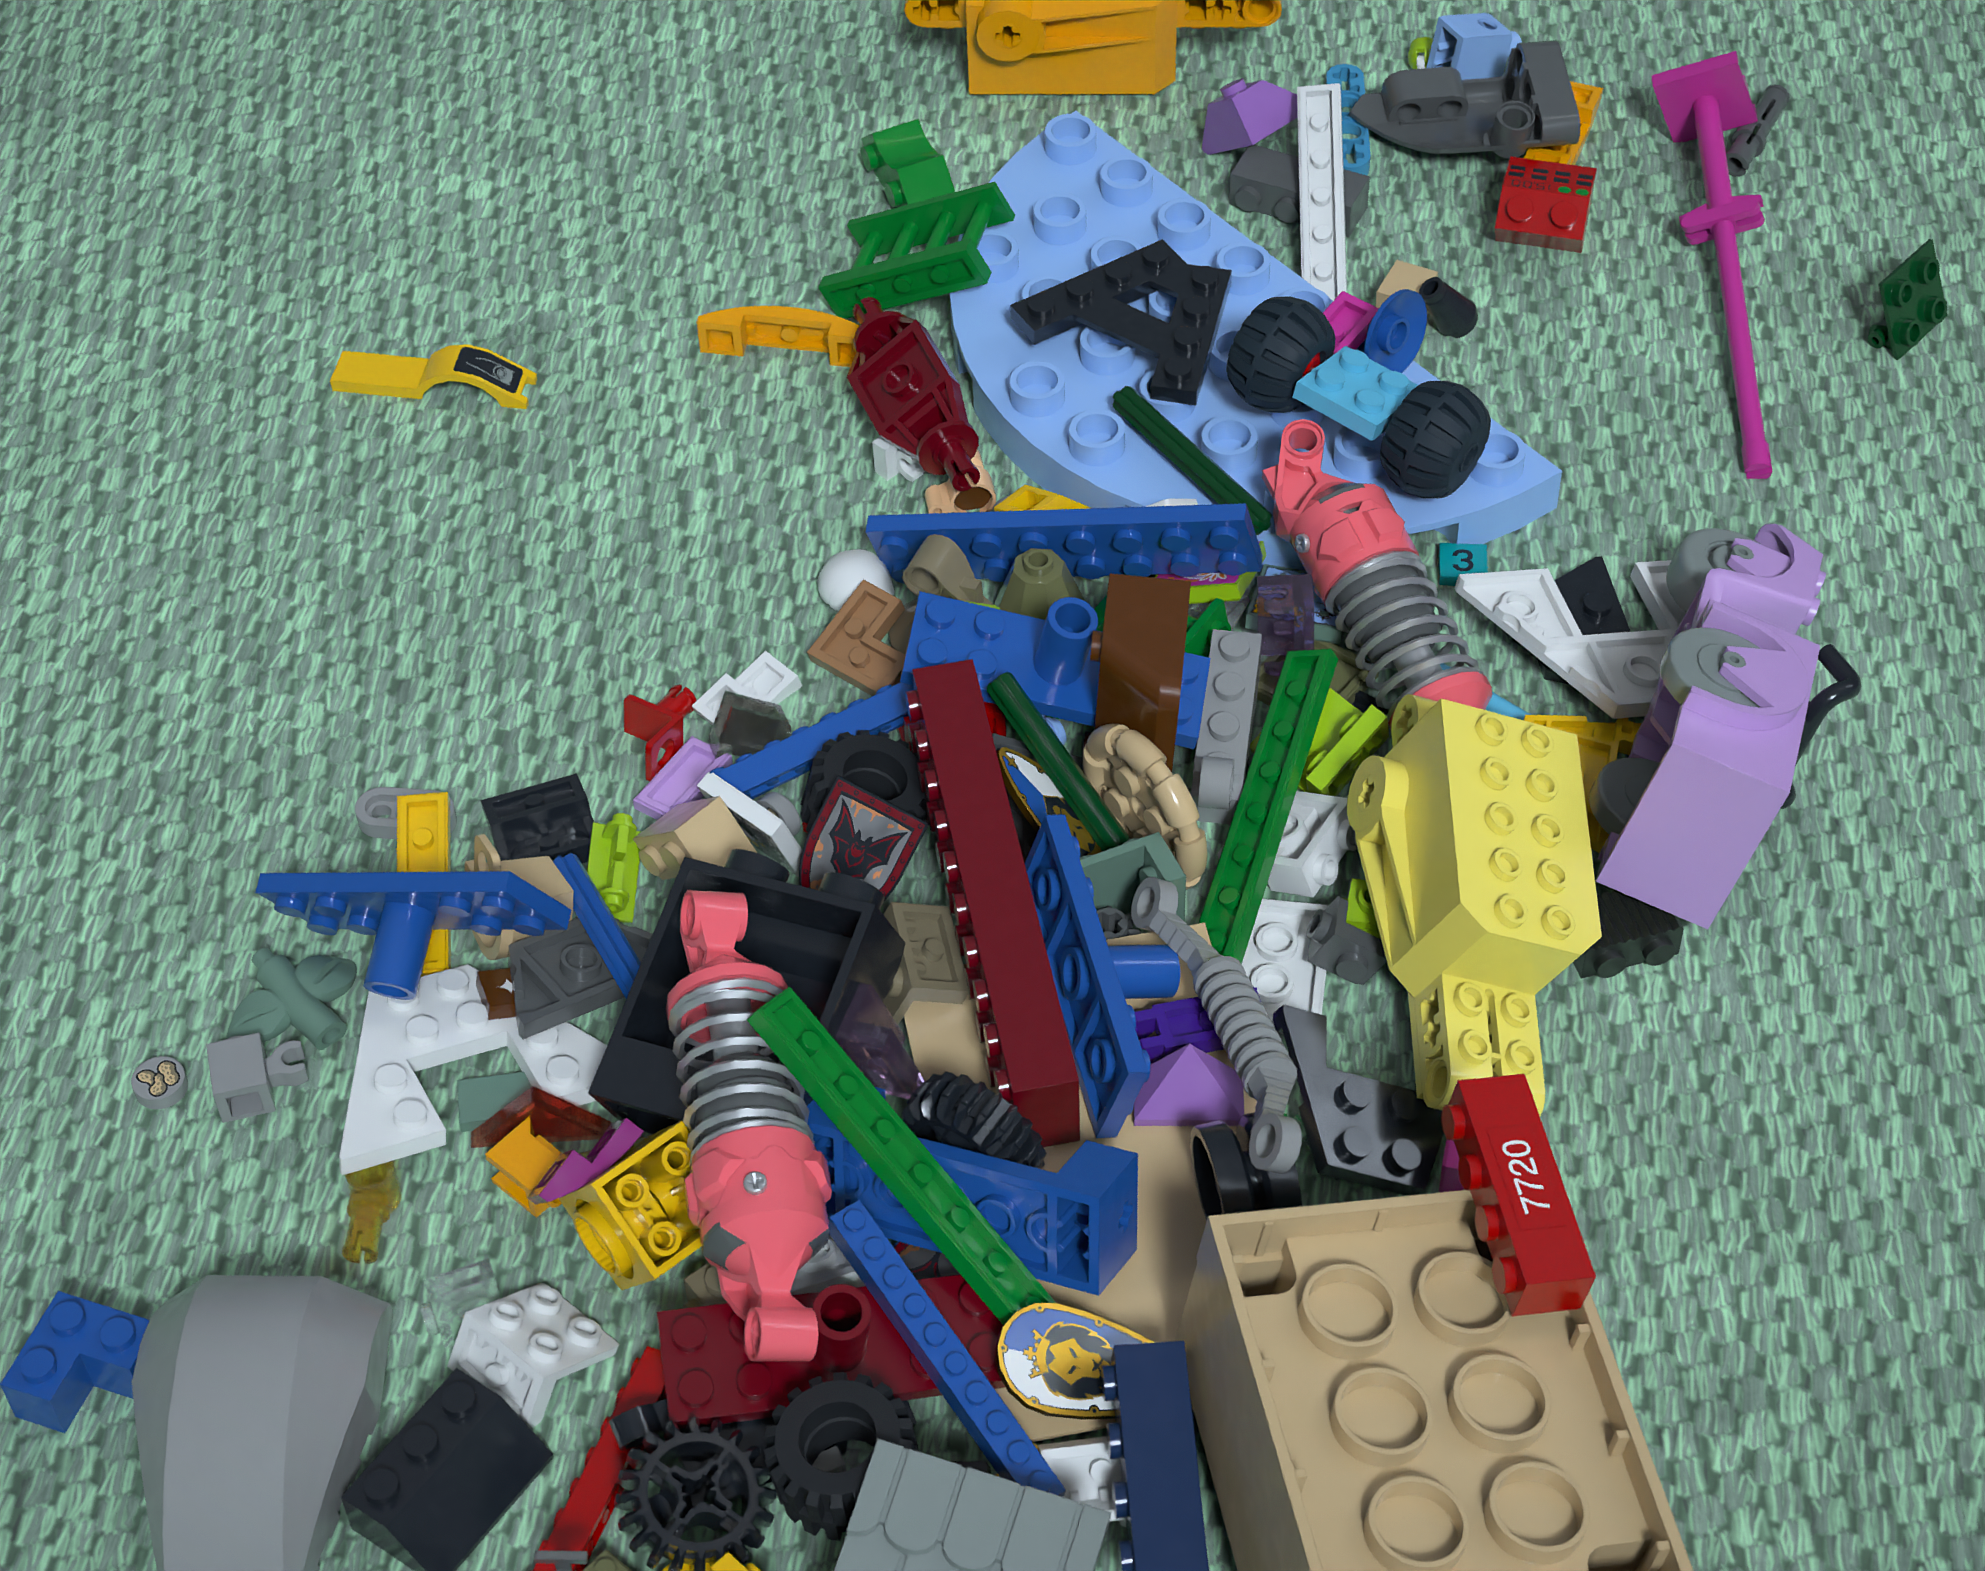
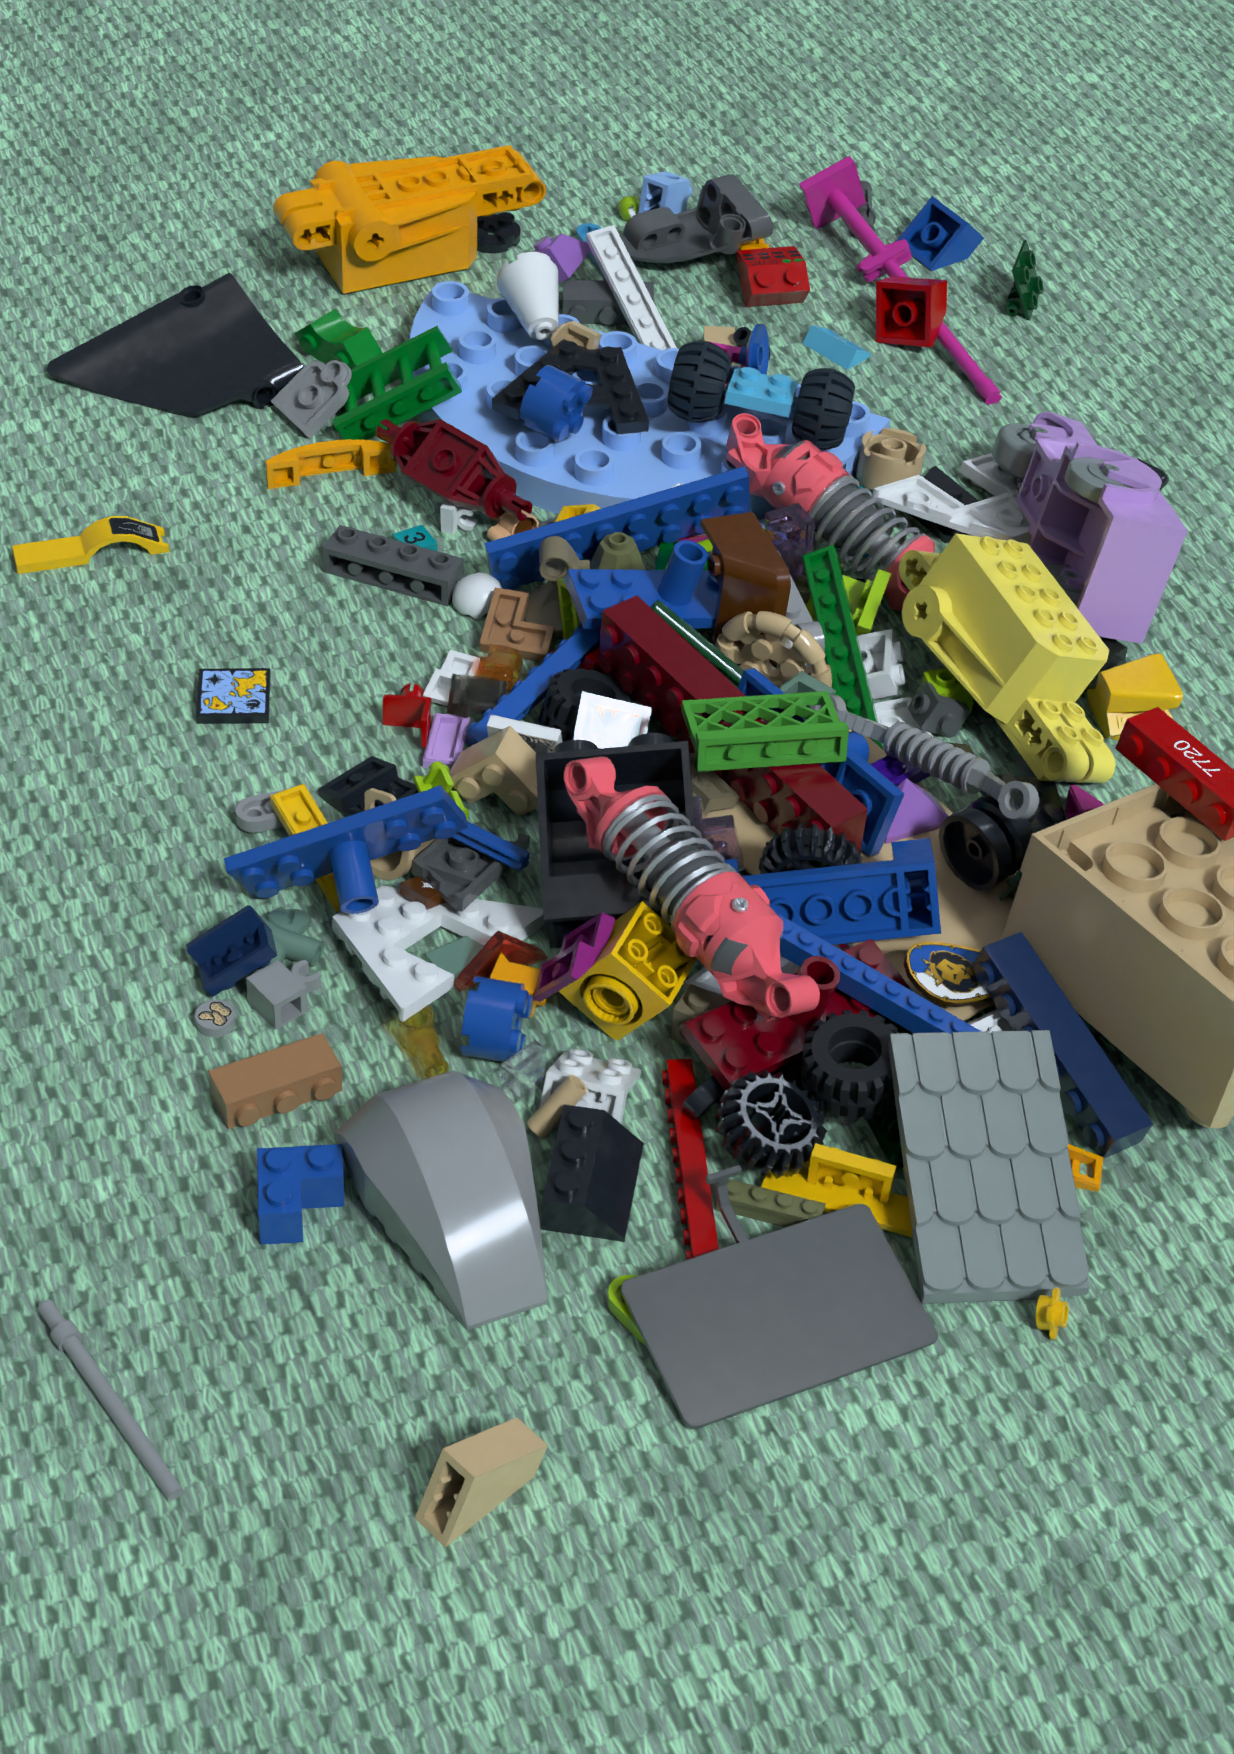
camera: 30 degrees left, 5 degrees down
(161, 1199) = (275, 1081): none -> medium nougat brick
(219, 999) = (232, 950): none -> dark blue bracket
(459, 1209) = (495, 1019): none -> blue brick
(468, 636) = (233, 696): none -> tile
(469, 1357) = (550, 1112): none -> tan hinge
(711, 138) = (185, 354): none -> black panel
(770, 505) = (392, 565): none -> dark grey brick
(810, 694) = (502, 664): none -> clear orange plate
(823, 236) = (314, 395): none -> light grey plate
(828, 479) = (416, 535): none -> teal tile
(897, 1156) = (791, 879): green tile -> none
(996, 942) = (757, 745): none -> bright green fence
(1074, 336) = (555, 404): none -> blue brick
(1154, 163) = (532, 292): none -> white cone
(1181, 236) = (576, 333): none -> tan plate
(1187, 455) = (651, 457): dark green axle -> none
(1236, 54) = (505, 232): none -> black plate
(1527, 530) = (889, 457): none -> tan brick
(1581, 333) = (835, 347): none -> medium azure slope
(1645, 1013) = (1131, 691): none -> yellow piece
(1703, 306) = (909, 310): none -> red slope
(1836, 198) = (940, 236): none -> blue slope

